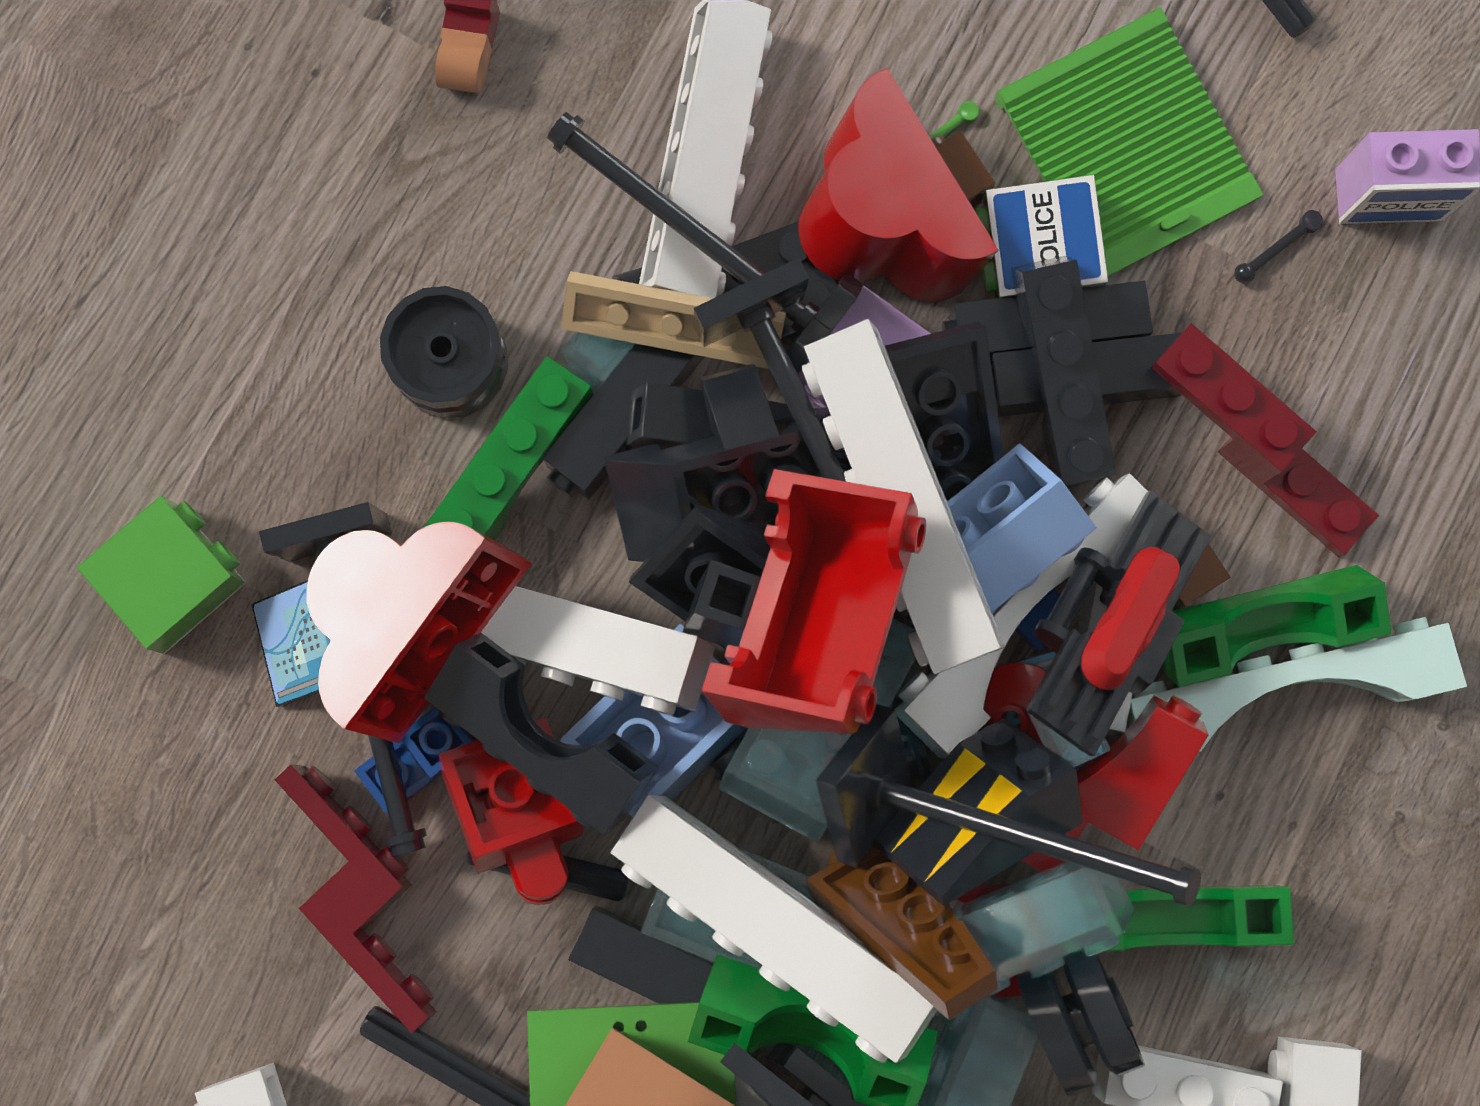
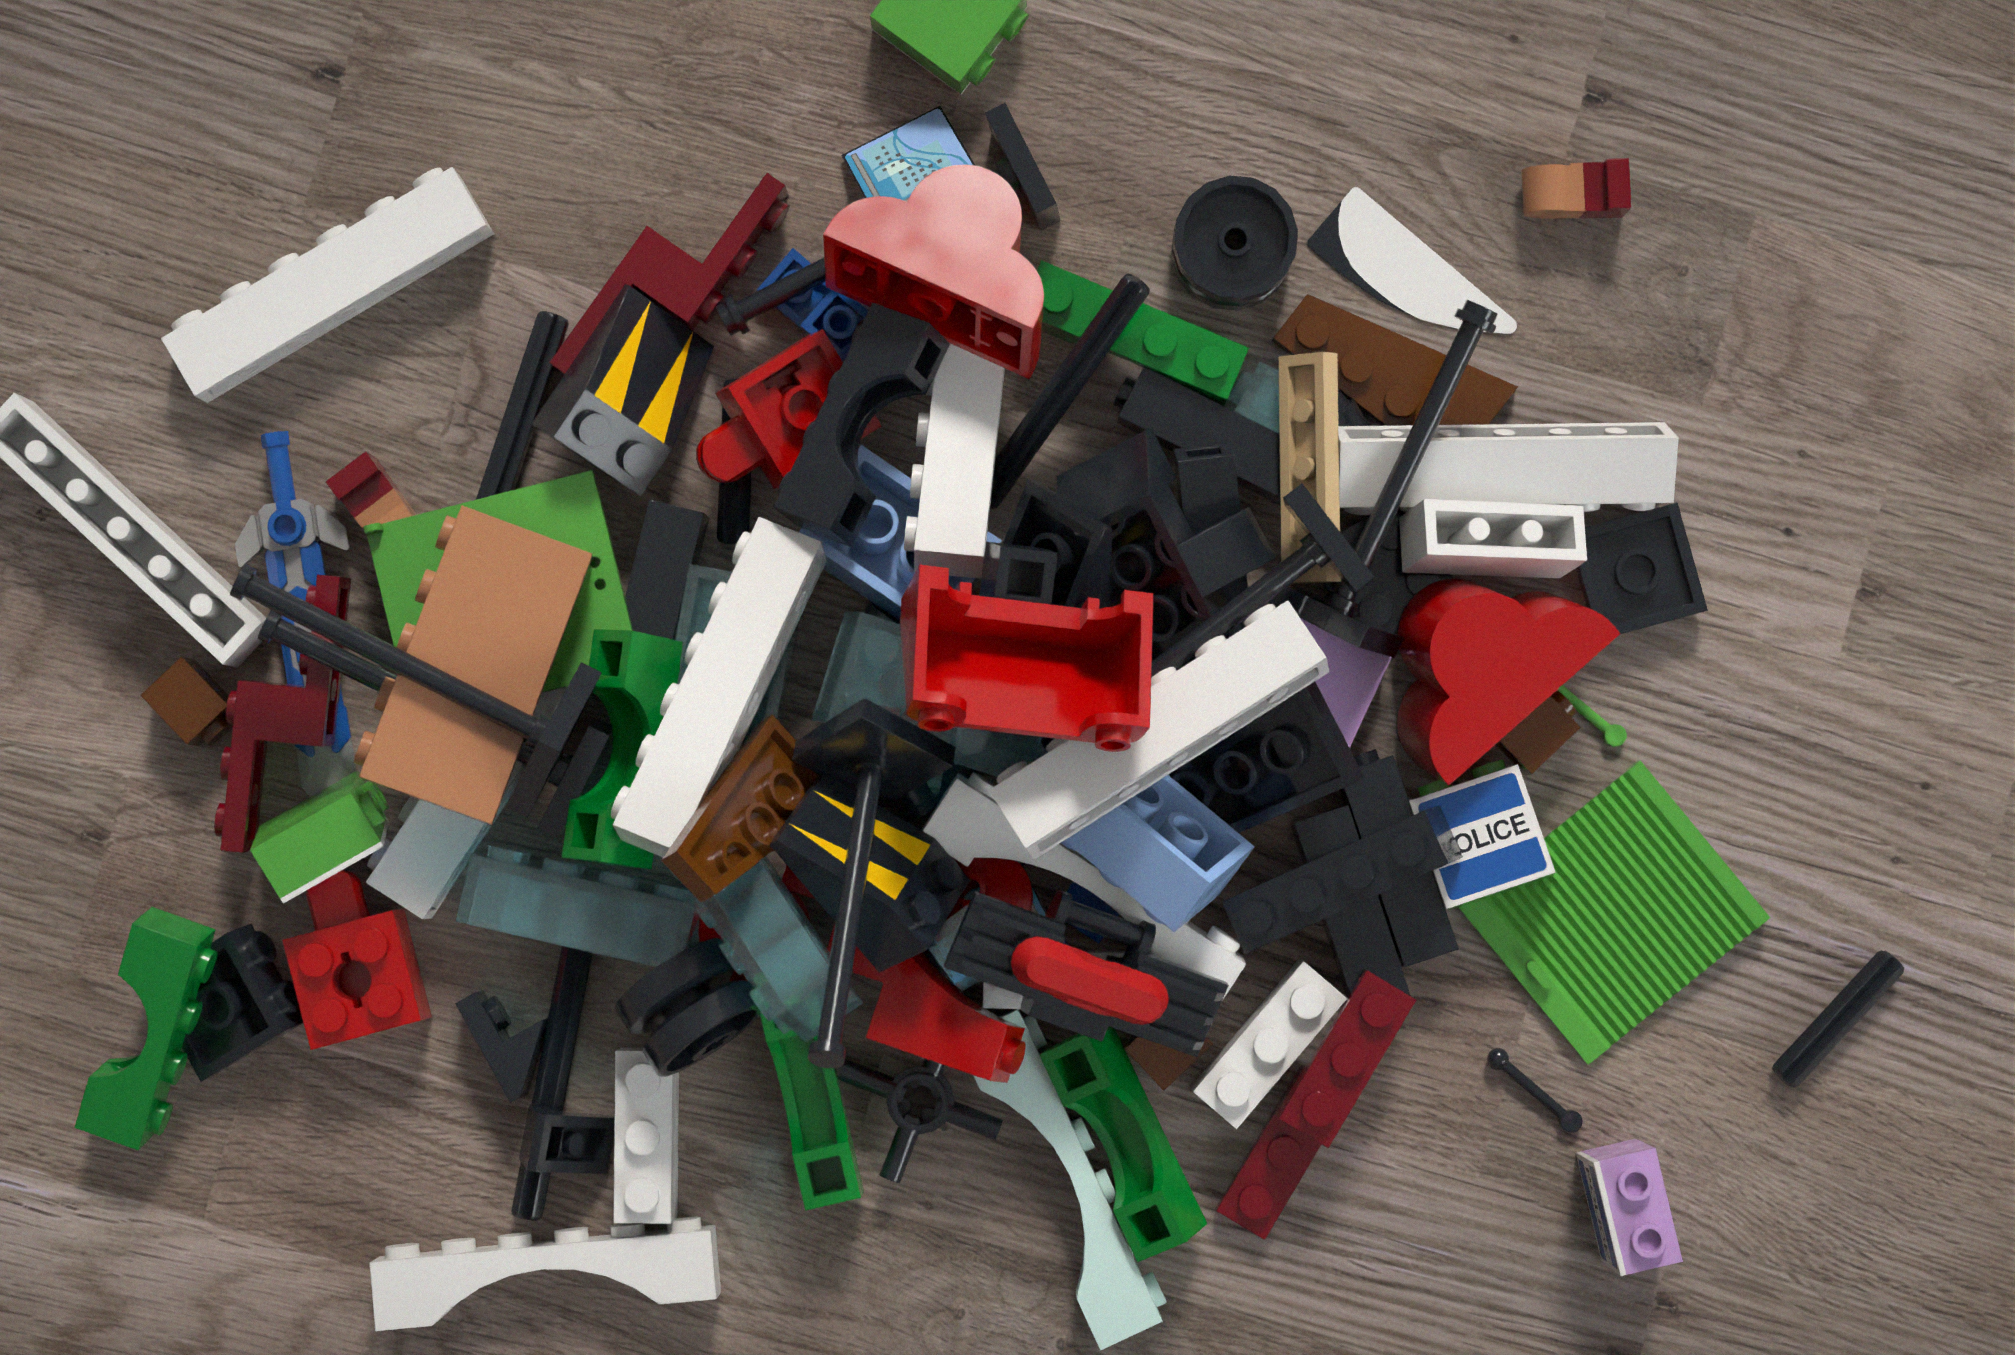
camera: 85 degrees right, 5 degrees up
(456, 960) = (627, 391): none -> black slope
(497, 218) = (1396, 265): none -> white sticker
(537, 525) = (1066, 384): none -> black axle
(599, 238) = (1386, 370): none -> reddish brown wing
(771, 172) = (1492, 538): none -> white brick
(821, 57) = (1641, 570): none -> black plate
(1199, 474) = (1268, 1043): none -> white brick
(1216, 806) = (910, 1125): none -> black bar

